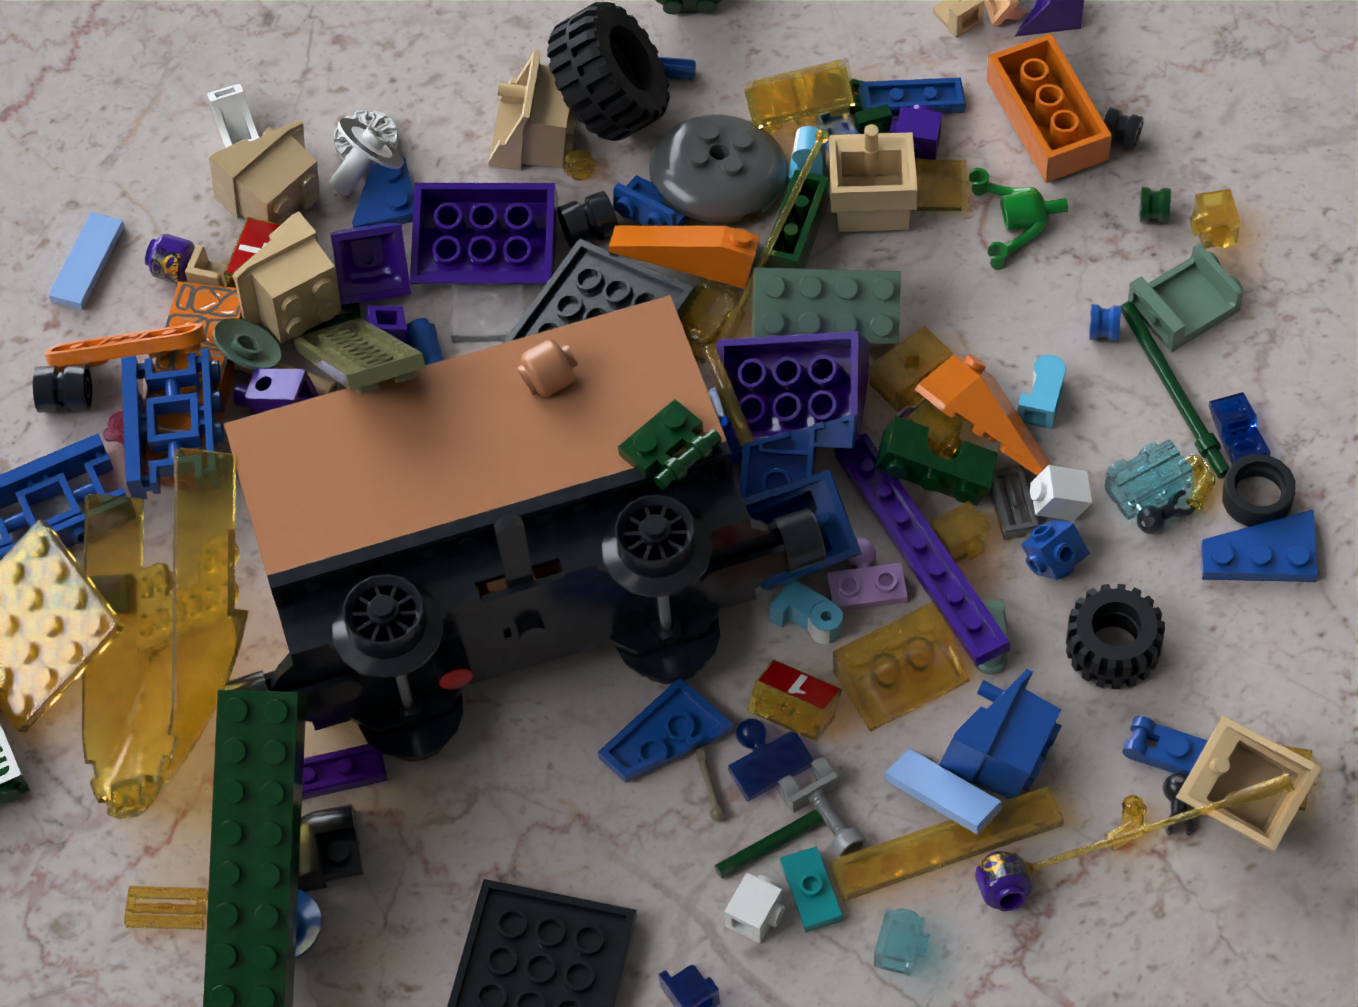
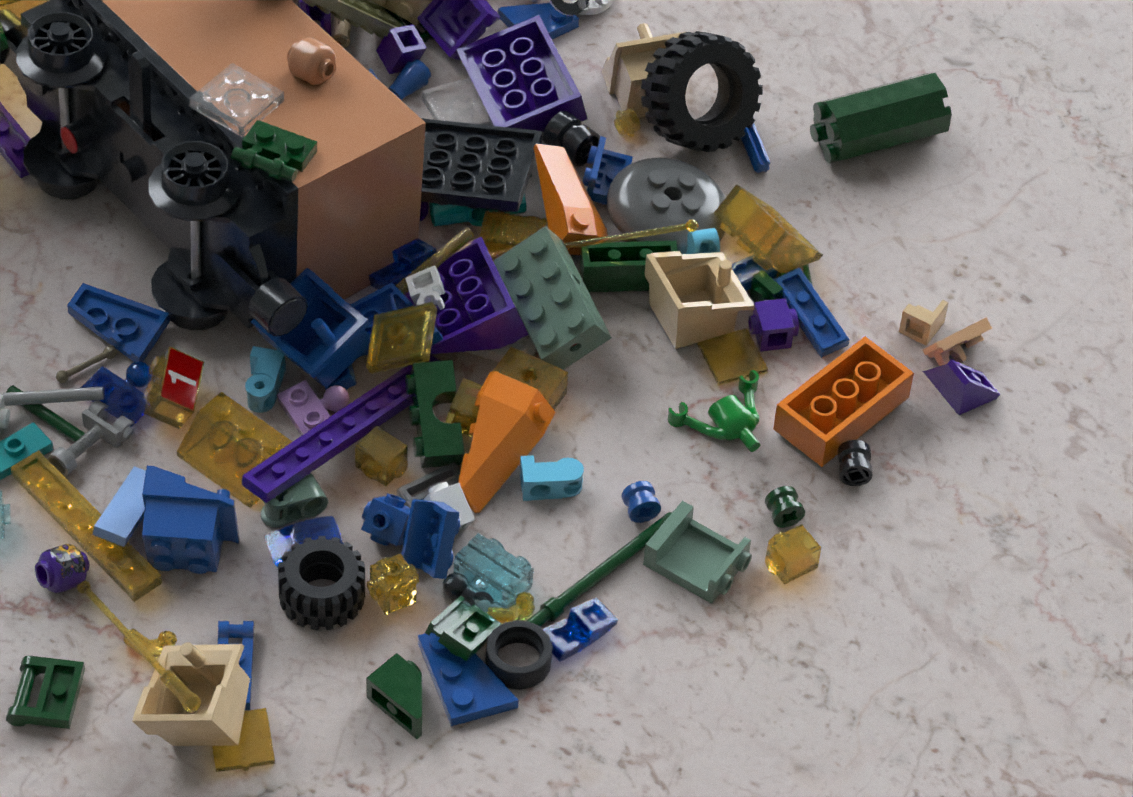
camera: 60 degrees right, 10 degrees down
(570, 459) = (236, 99): none -> clear plate
(757, 824) = (53, 396): none -> light grey bar
(772, 411) = (426, 287): none -> white plate
(845, 448) = (401, 337): none -> clear yellow plate
(1043, 639) = (284, 538): none -> clear blue slope
(1105, 513) = (431, 537): none -> blue bracket
(1138, 568) = (393, 583): none -> clear yellow brick
(1167, 930) = (57, 693): none -> dark green plate
(1221, 525) = (462, 628): none -> plate
(1276, 608) = (398, 692): none -> dark green slope

